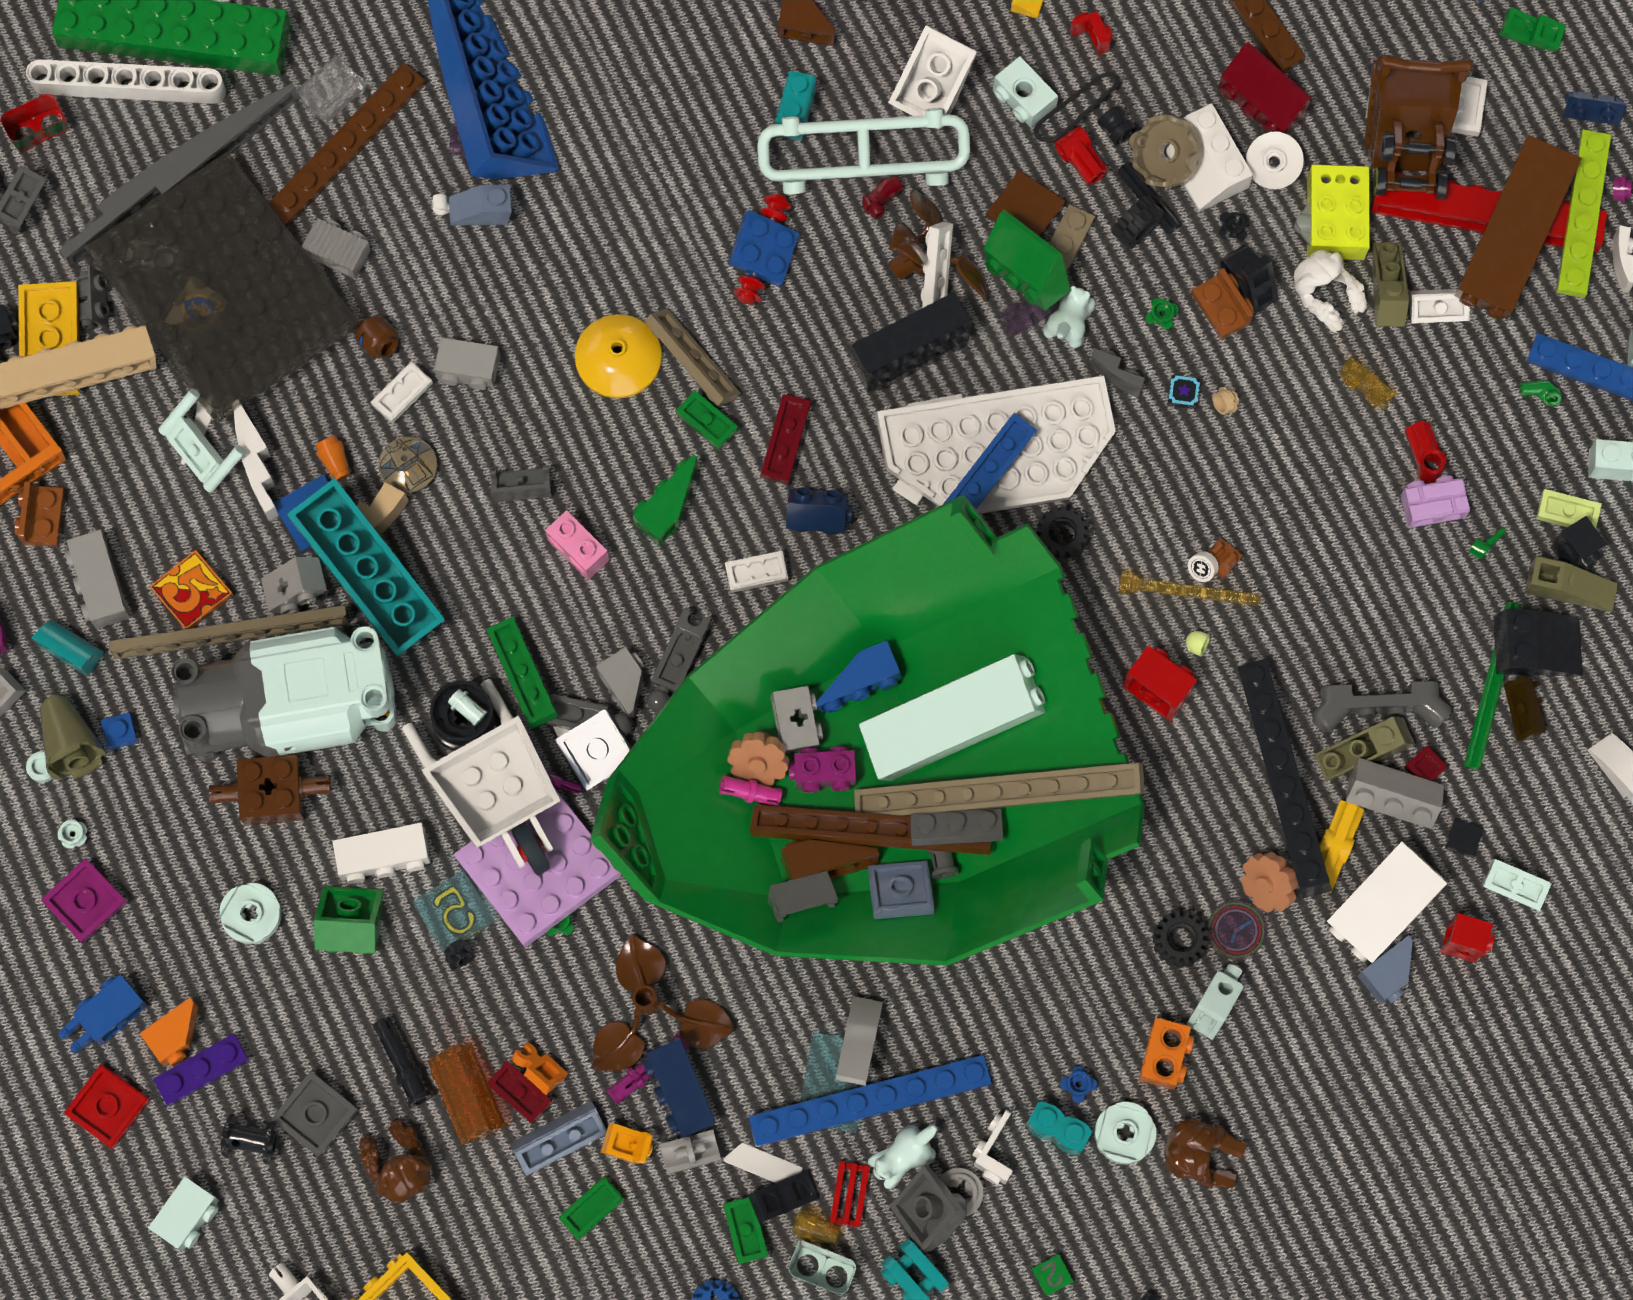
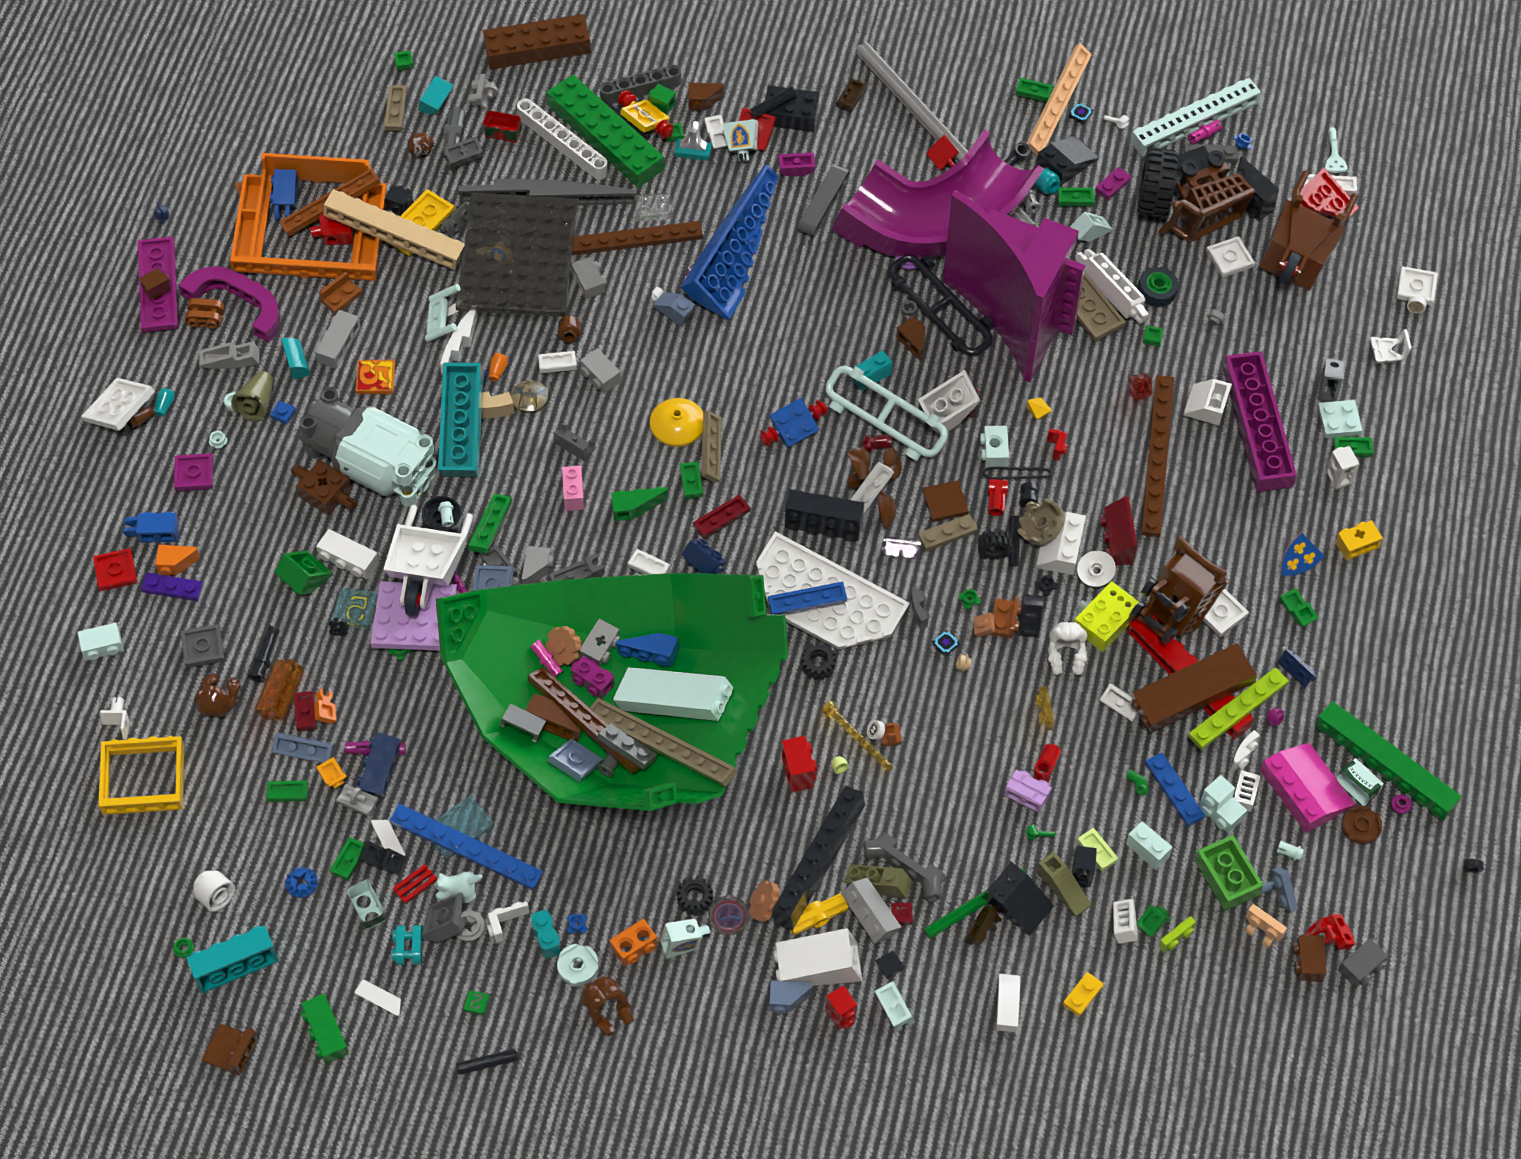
camera: 40 degrees right, 15 degrees down
(229, 632) = (362, 399): dark tan tile -> none
(249, 1138) = (167, 637): black hose -> none
(257, 929) = (265, 544): light aqua plate -> none
(293, 585) = (421, 404): light grey brick -> none
(636, 968) = (418, 700): reddish brown plant -> none
(814, 1228) = (381, 883): clear yellow cone -> none
(859, 1040) = (486, 811): light grey slope -> none
(1026, 262) = (916, 519): green slope -> none
(1070, 317) = (918, 565): light aqua animal -> none
(1208, 333) = (984, 624): none -> nougat plate
(1389, 285) = (1102, 671): olive slope -> none

